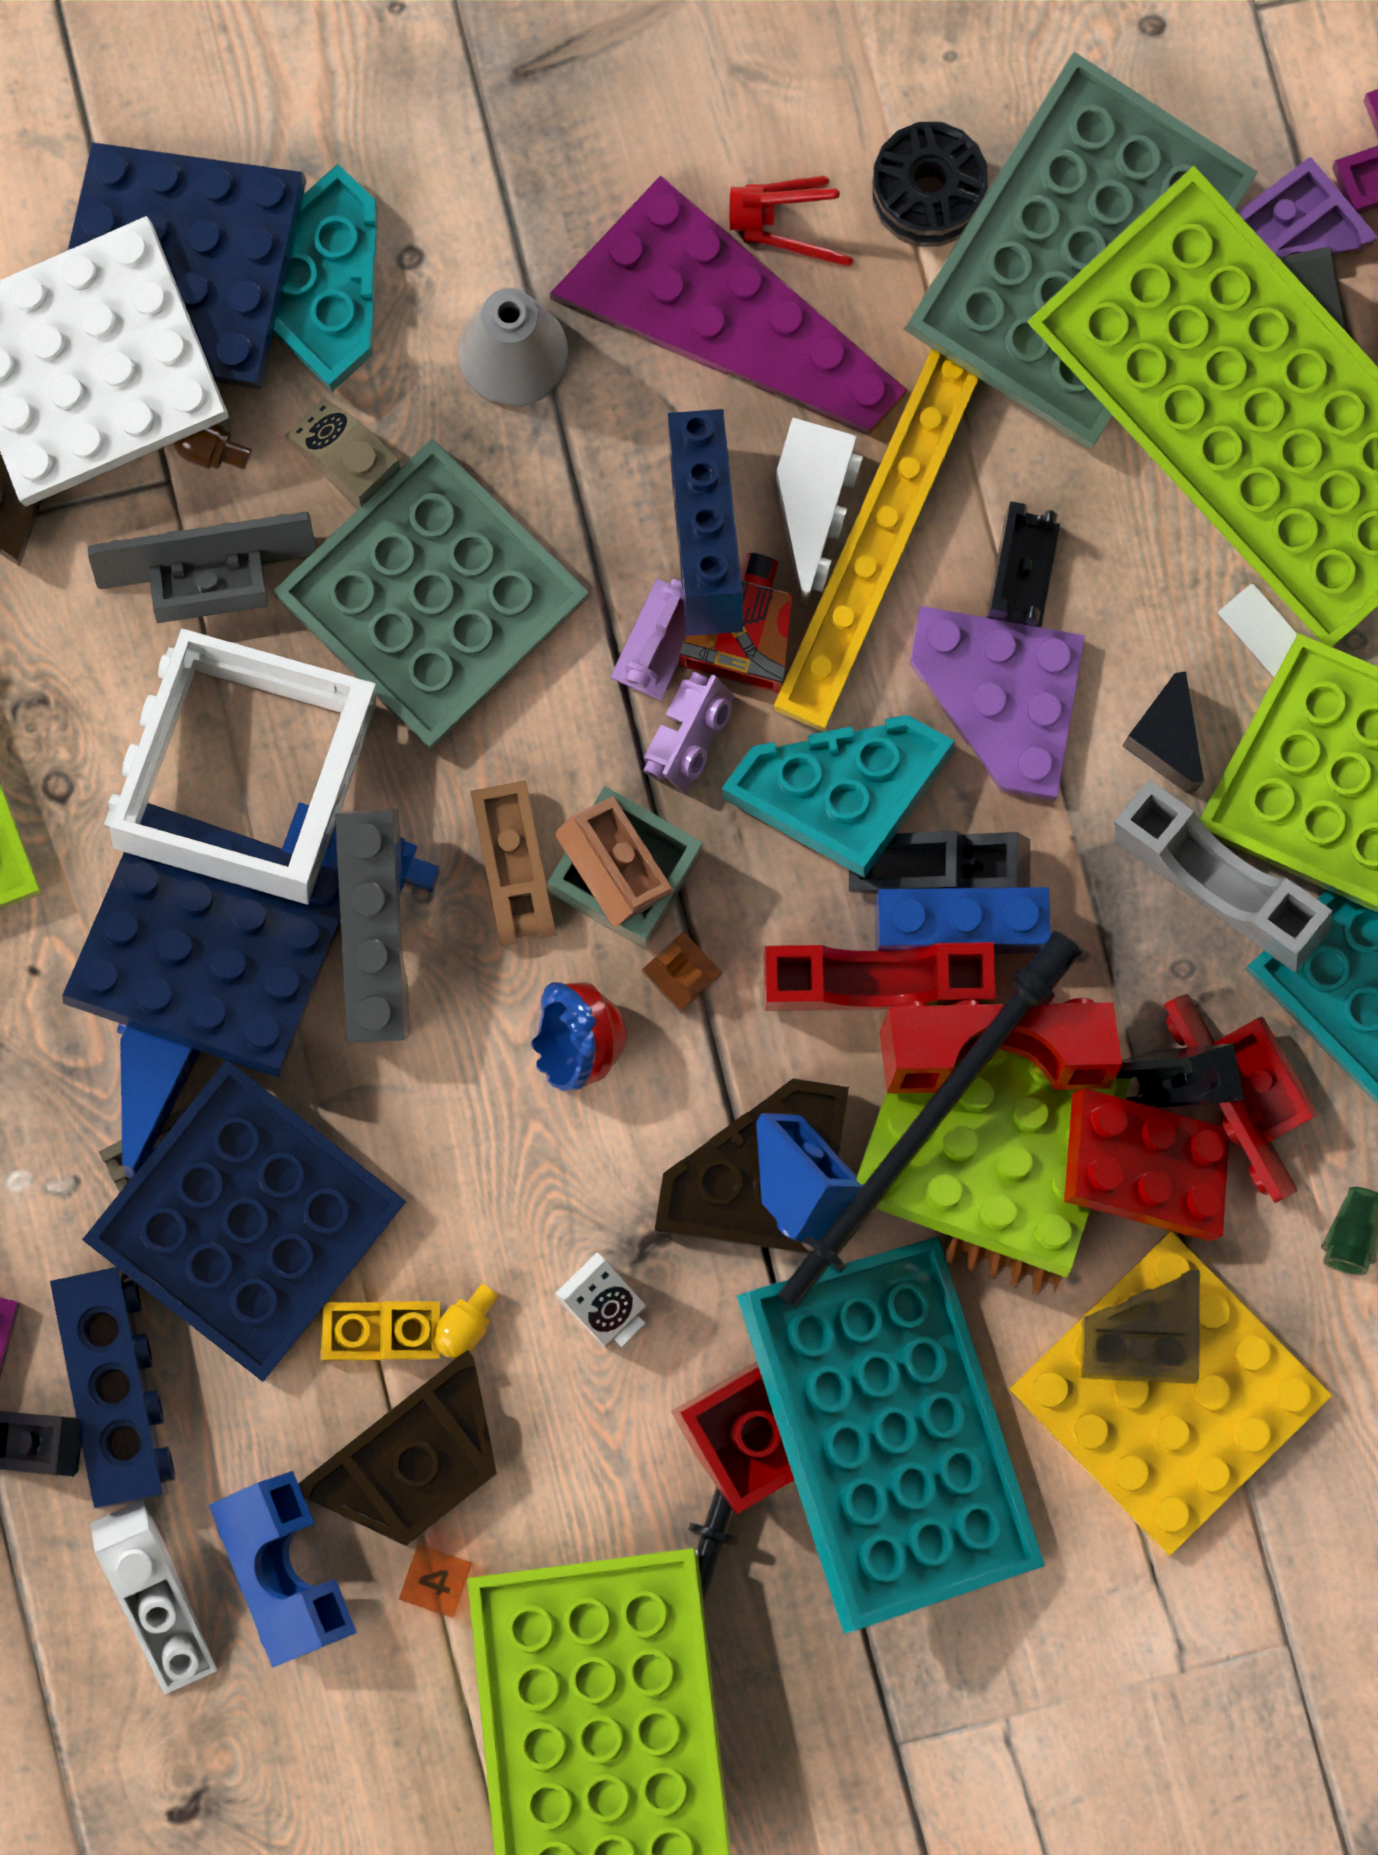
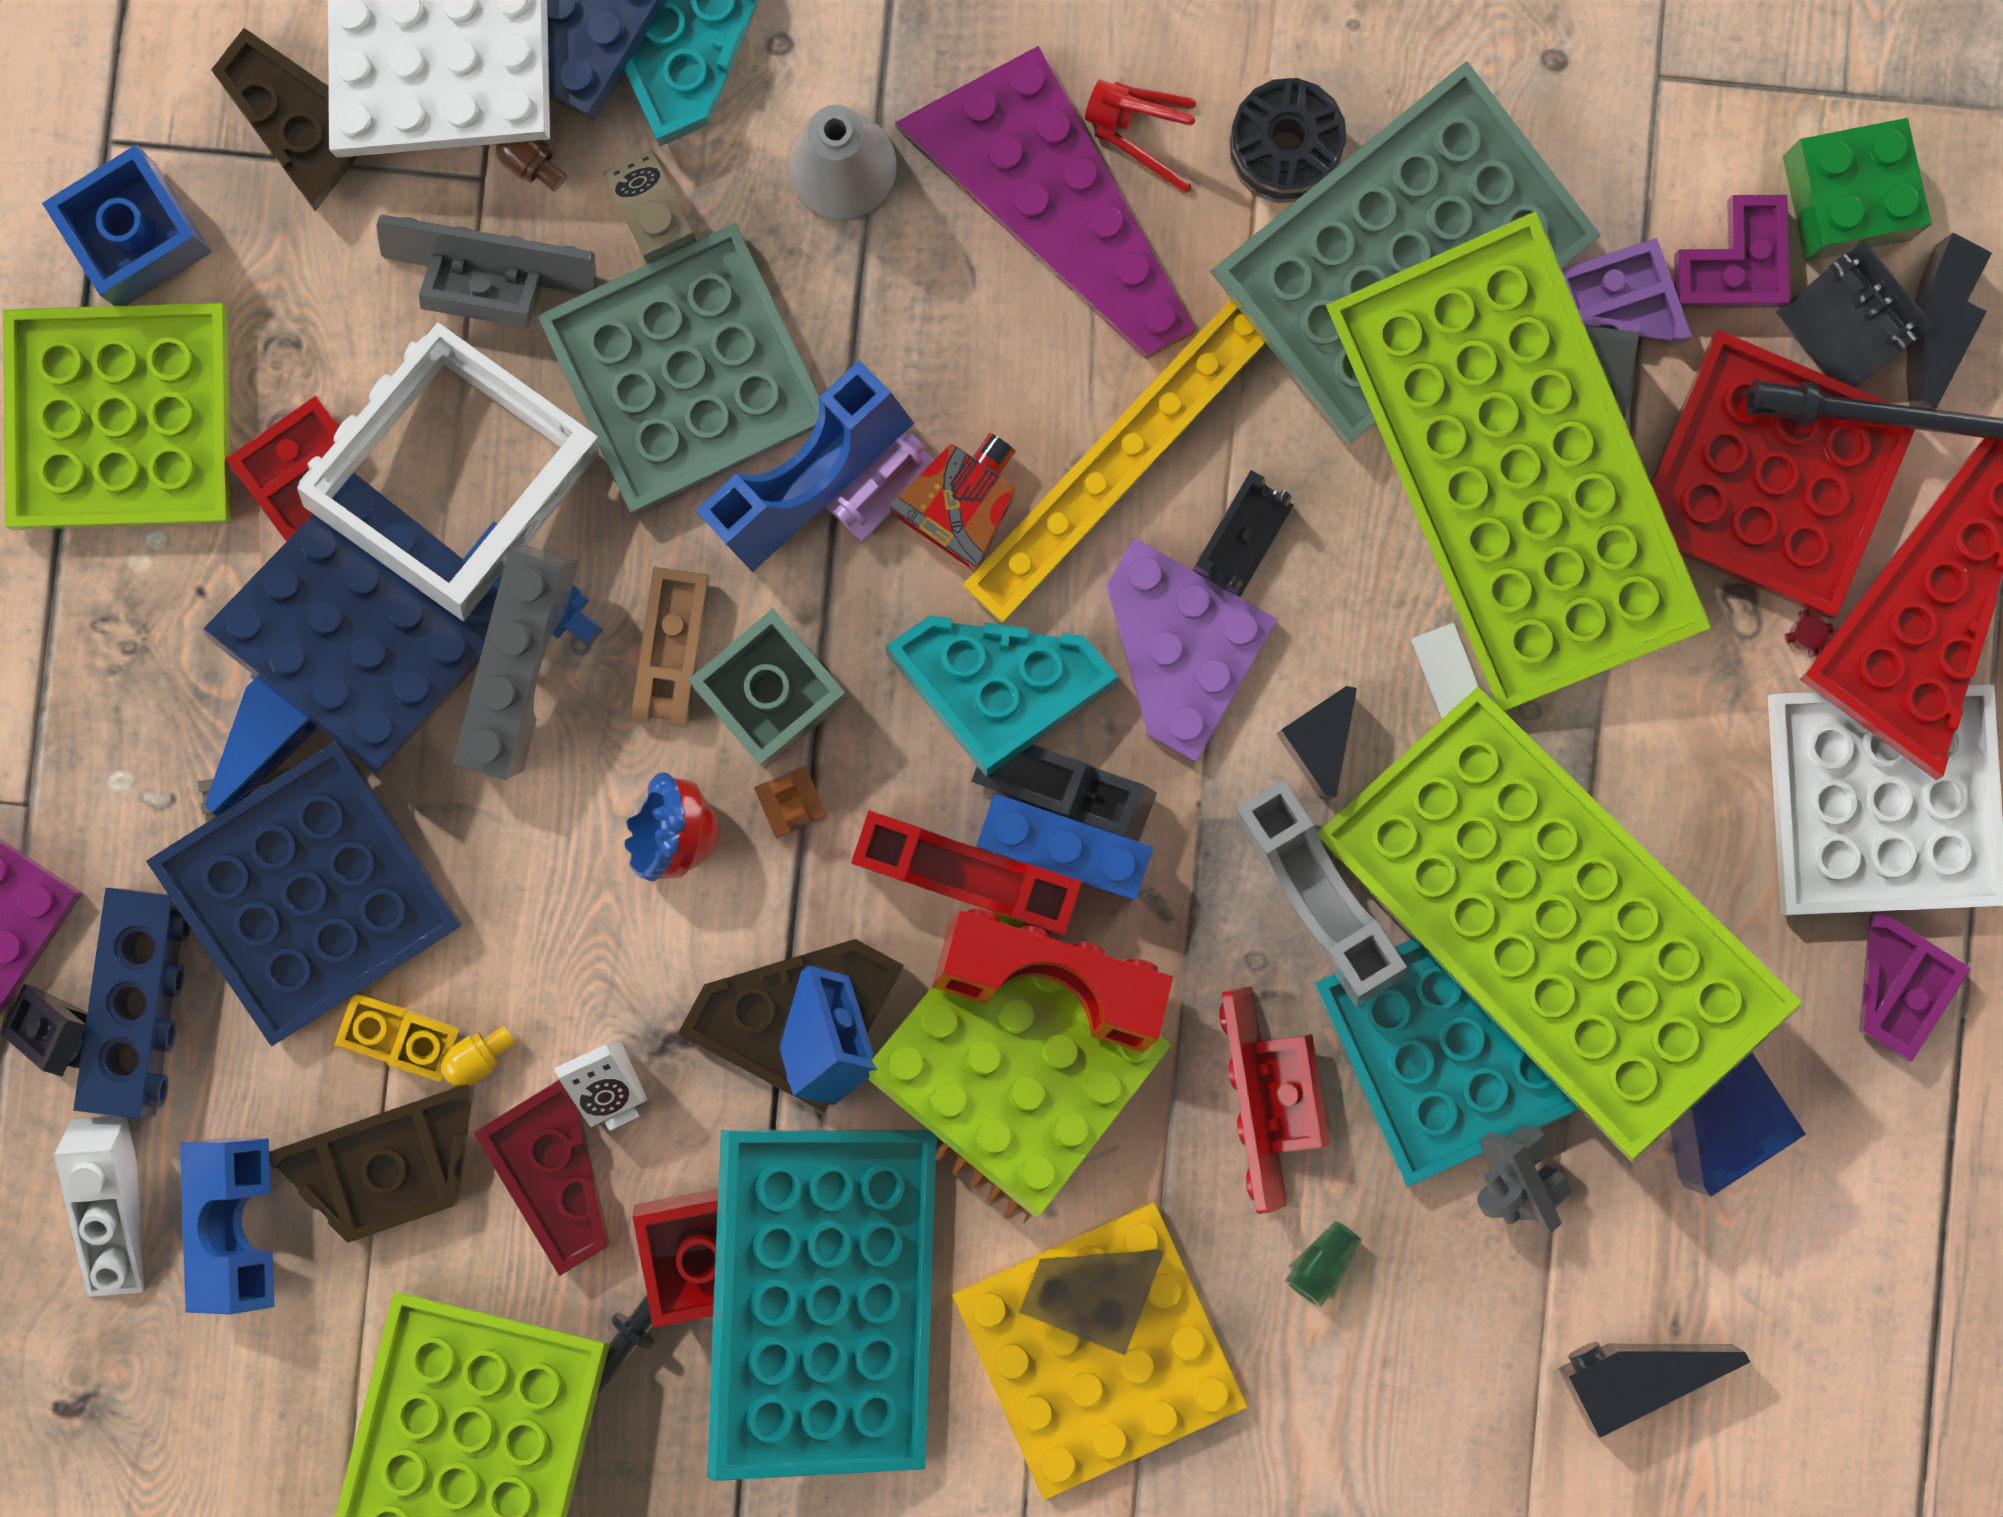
camera: 25 degrees right, 5 degrees up
(73, 816) = (279, 460): none -> red wing
(435, 1580) = (367, 1281): clear orange tile -> none
(576, 1409) = (549, 1174): none -> dark red wing
(613, 861) = (755, 682): nougat slope -> none
(616, 592) = (852, 429): none -> blue arch
(703, 710) = (896, 564): lavender hinge -> none
(705, 522) = (955, 391): dark blue brick -> none
(808, 488) = (1072, 387): white slope -> none
(1031, 989) = (1096, 941): black bar -> none
(1146, 1165) = (1150, 1137): red plate -> none
(1185, 1076) = (1216, 1066): black hinge -> none

